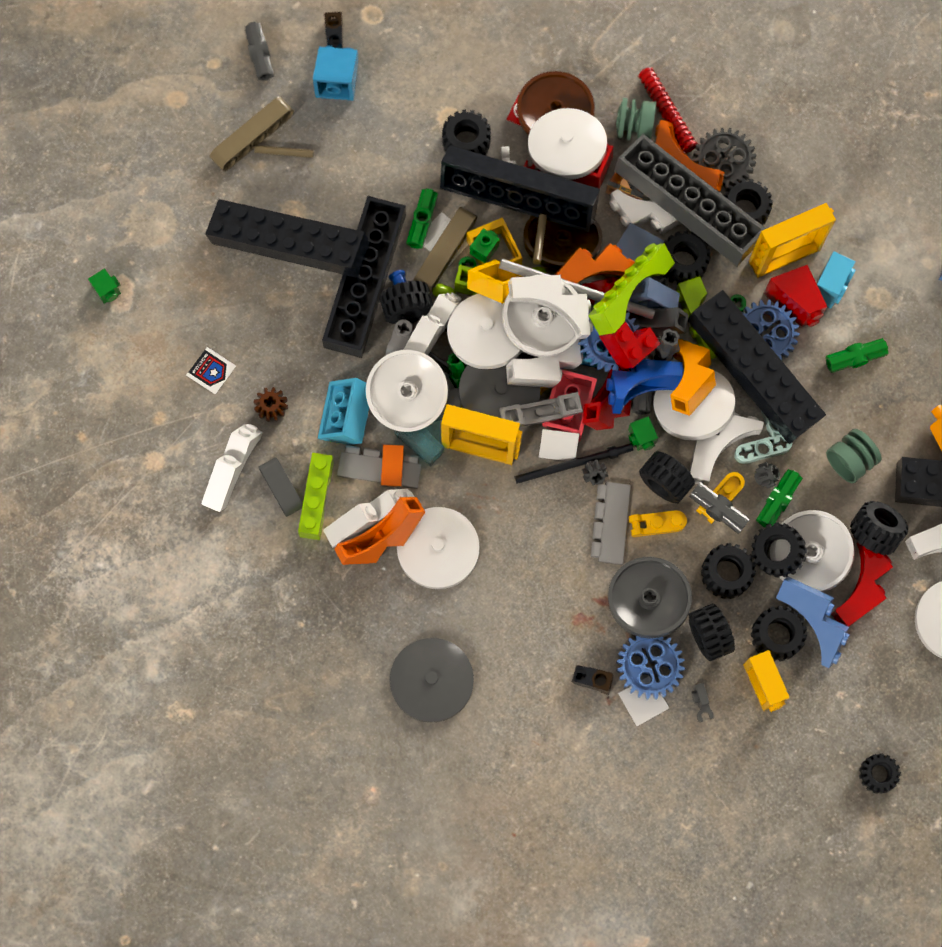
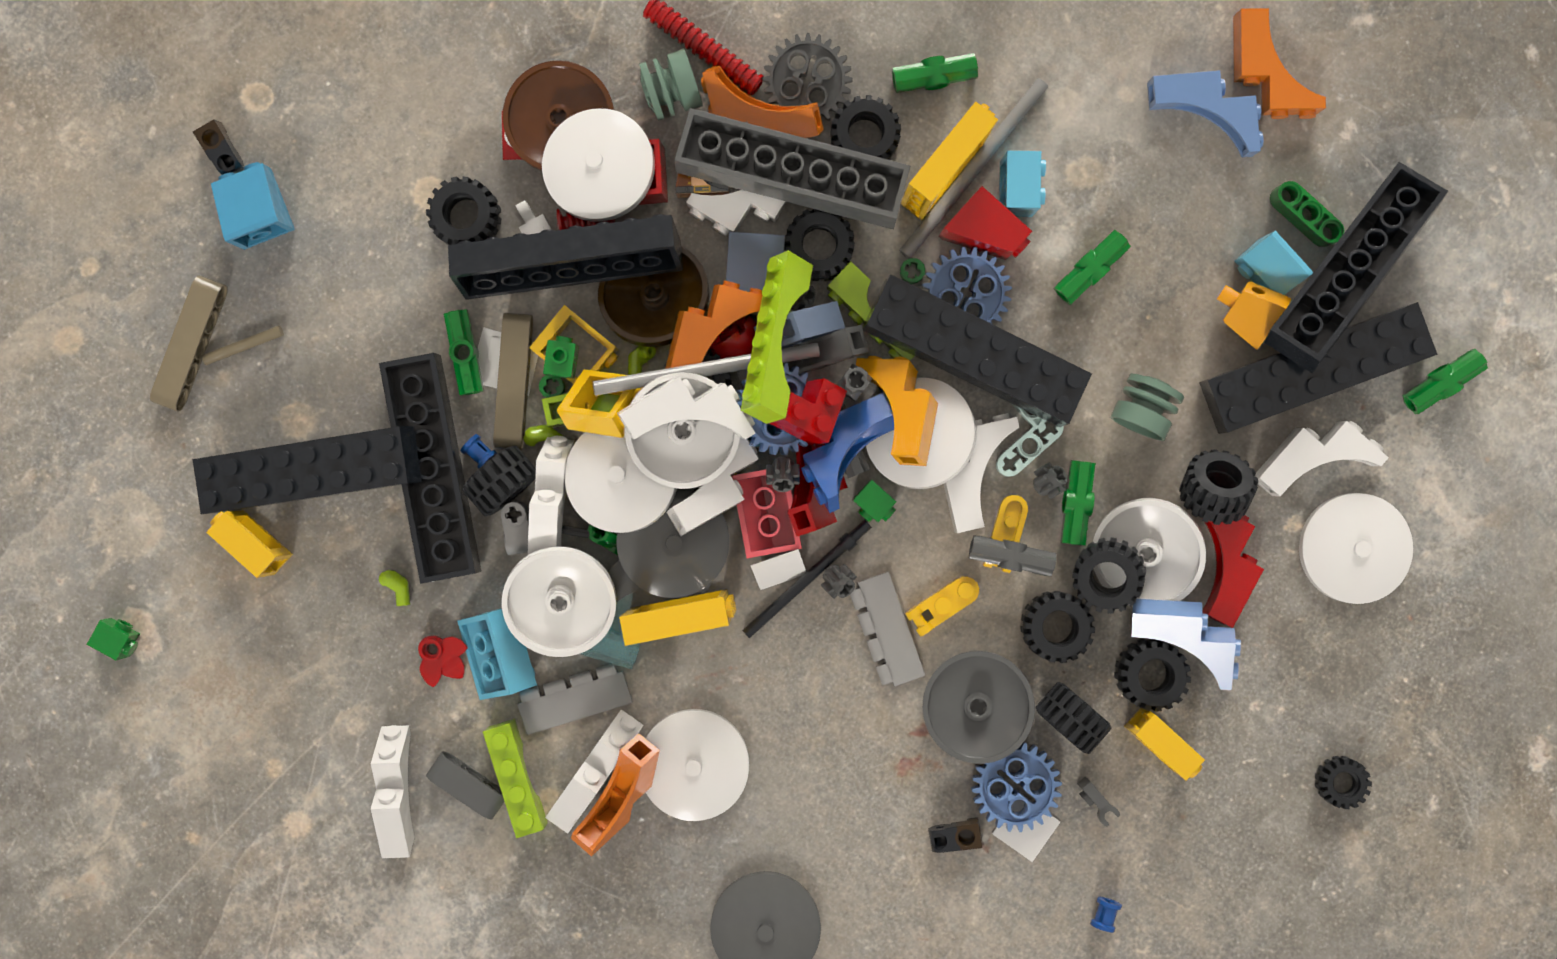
camera: 25 degrees left, 15 degrees up
(211, 370) = (304, 677): sticker -> none
(225, 266) = (248, 543): none -> yellow window
(259, 51) = (137, 224): dark grey piece -> none
(266, 399) = (400, 678): reddish brown gear -> none
(304, 340) = (398, 584): none -> lime arm
(308, 402) = (444, 661): none -> red plate
(392, 465) = (588, 693): orange tile -> none
(539, 239) = (626, 314): dark tan bar -> none
(543, 411) = (737, 547): light grey slope -> none
(593, 379) = (782, 474): none -> dark grey gear
(667, 477) = (931, 550): black tyre -> none
(671, 784) = (1106, 914): none -> blue bush
(808, 191) = (935, 73): none -> green piece
(808, 260) = (973, 168): none -> light grey piece

